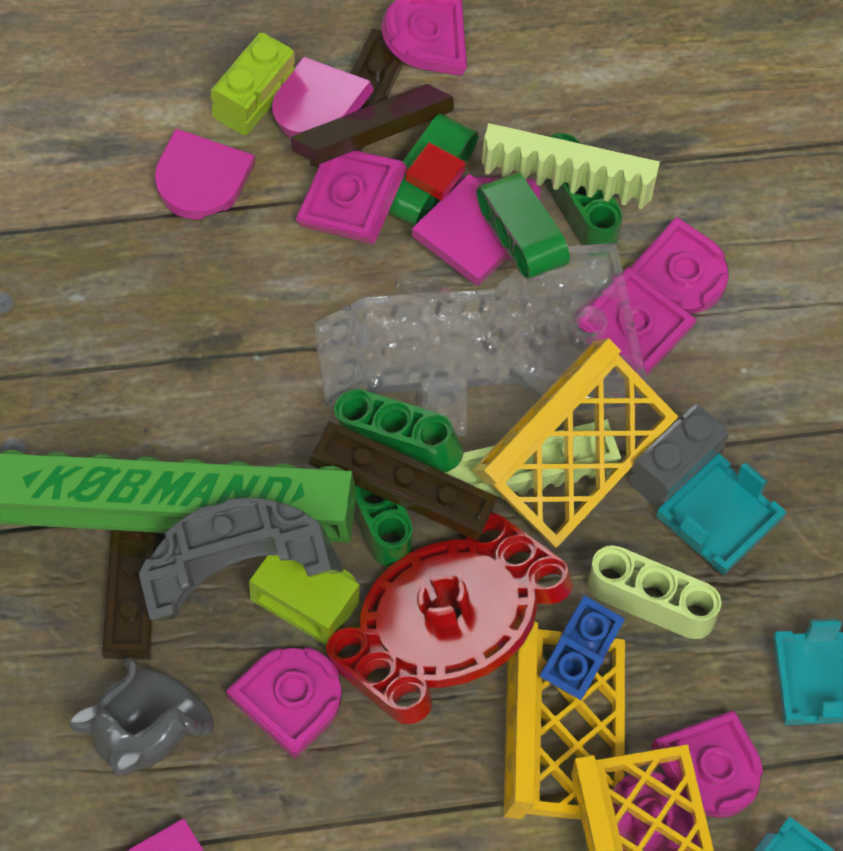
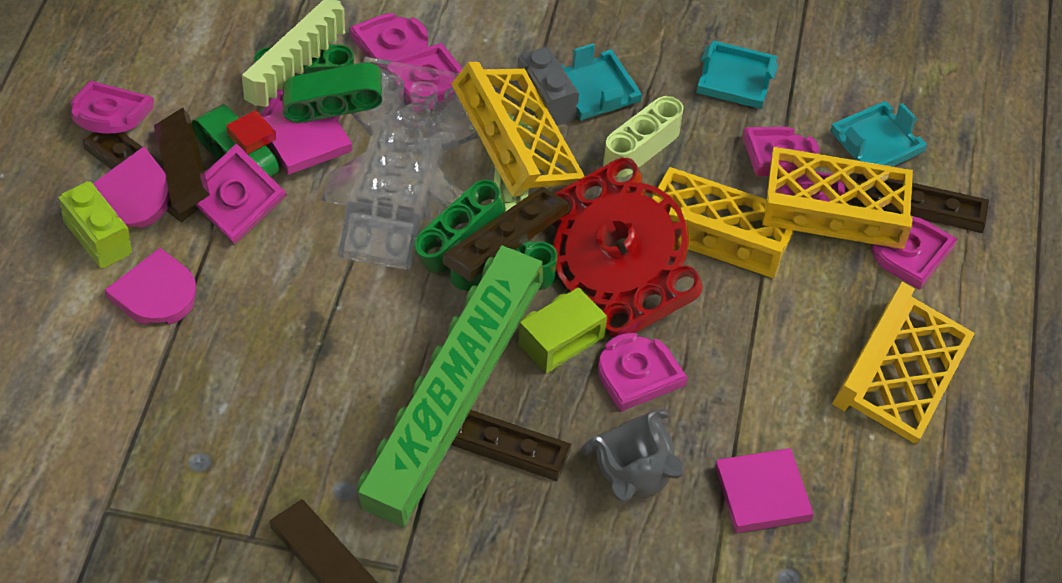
camera: 70 degrees left, 10 degrees down
(227, 535) = (515, 342): dark grey windscreen -> none
(581, 647) = (684, 189): blue slope -> none

